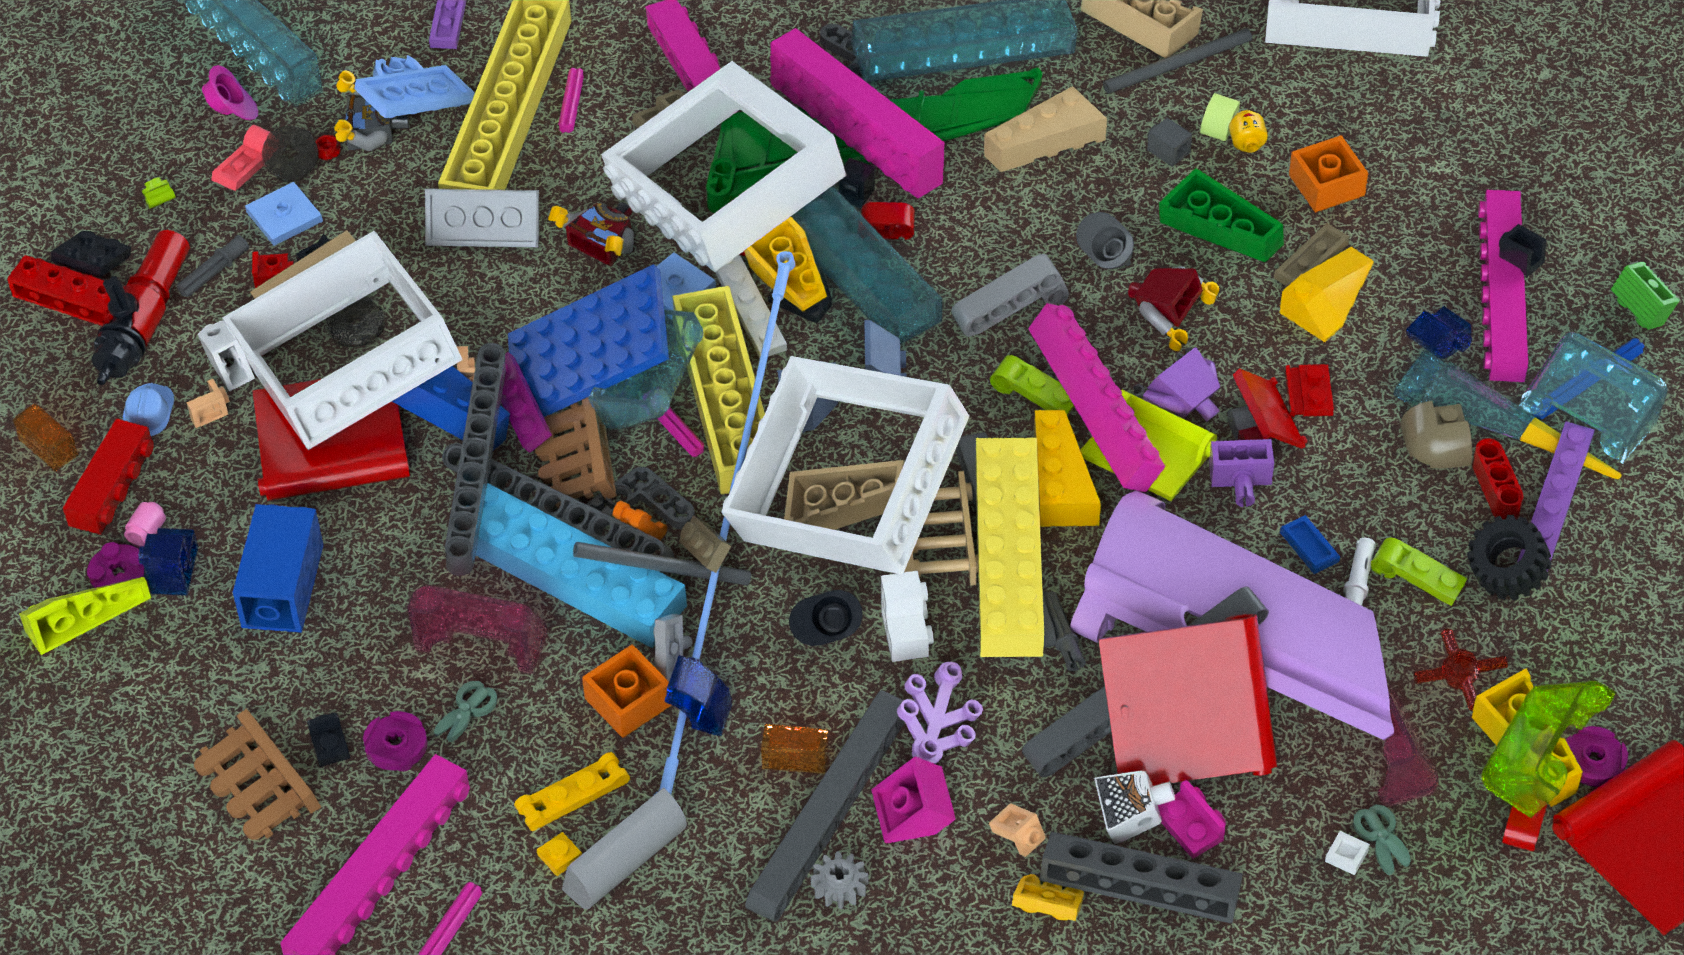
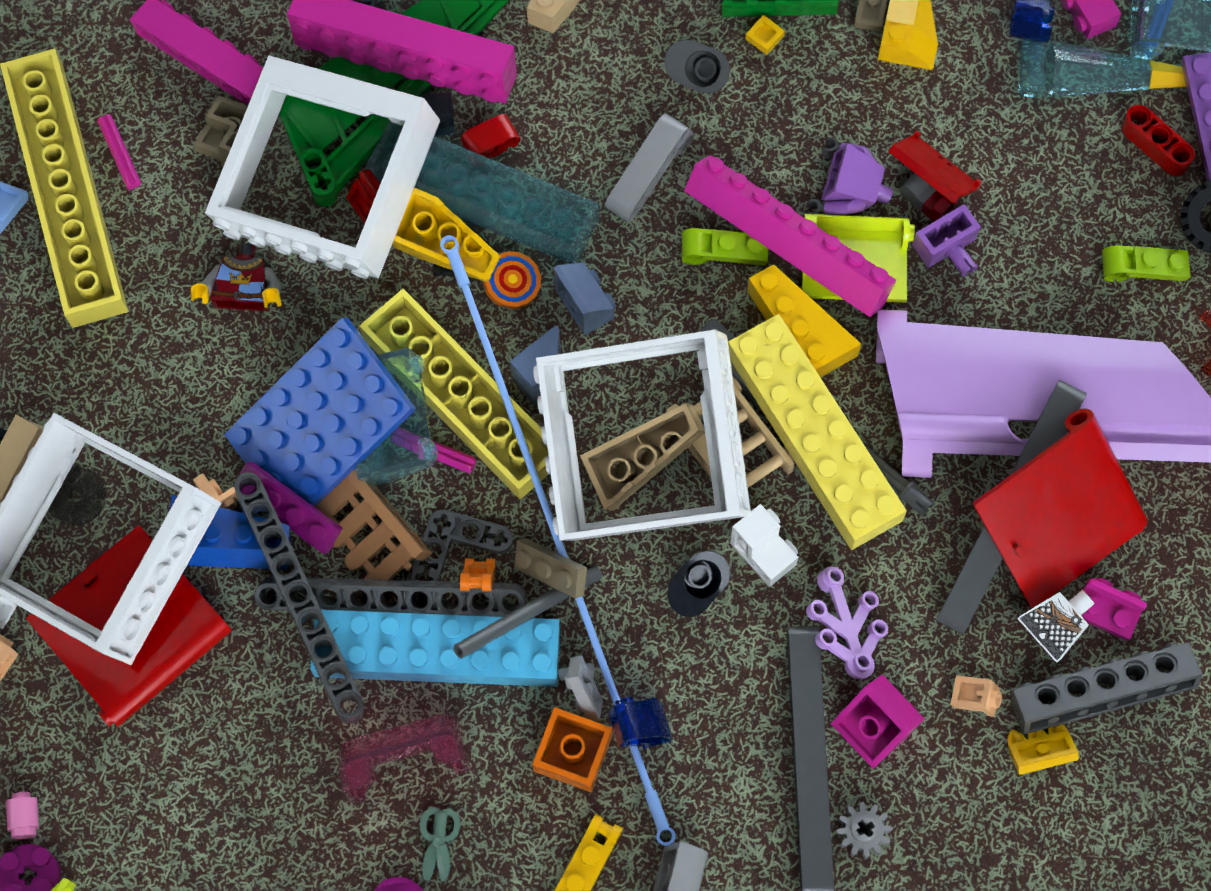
camera: 30 degrees left, 20 degrees up
(169, 560) = (73, 842): clear blue brick -> none
(278, 568) = (182, 799): blue brick -> none
(481, 217) = (124, 327): light grey tile -> none
(680, 278) = (339, 297): light blue plate -> none
(750, 305) = (423, 289): white plate -> none
(794, 748) = (749, 724): clear orange brick -> none
(830, 330) = (513, 281): none -> tile
(1169, 296) = (784, 98): dark red torso -> none
(1187, 248) = (765, 35): none -> yellow plate
(1309, 390) = (950, 127): red plate -> none
(1309, 544) = (1041, 283): blue tile -> none
(1356, 588) = (1105, 306): white pin -> none
(1437, 435) = (1084, 121): dark tan brick -> none

